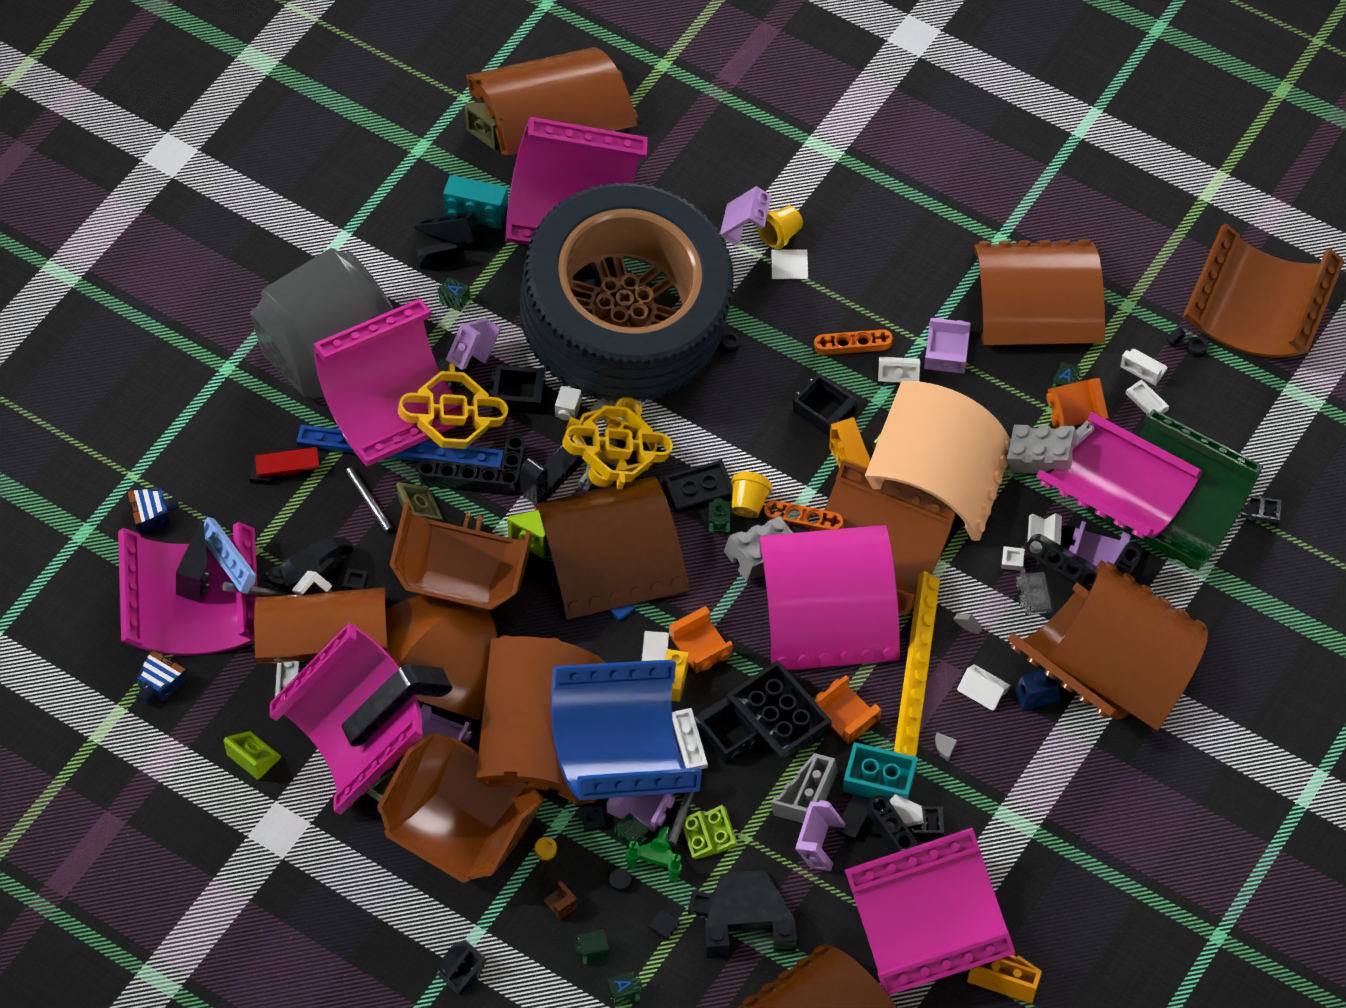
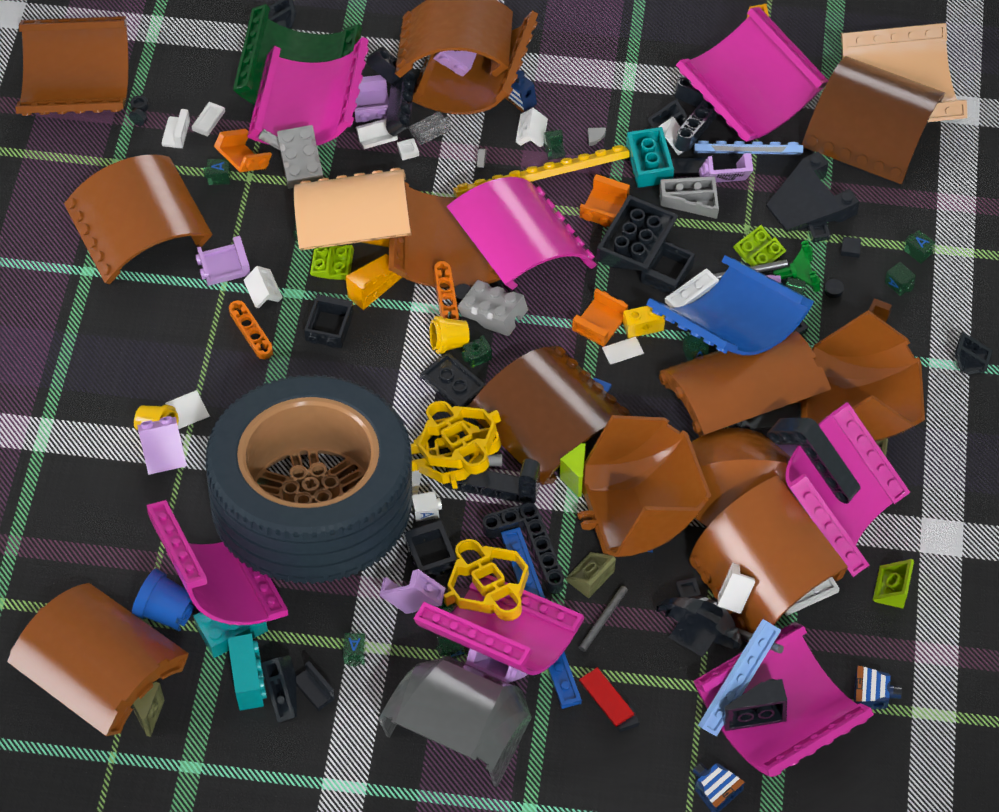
camera: 115 degrees left, 0 degrees up
(840, 889) = (740, 147): none -> light blue plate
(948, 696) = (554, 144): none -> clear green panel

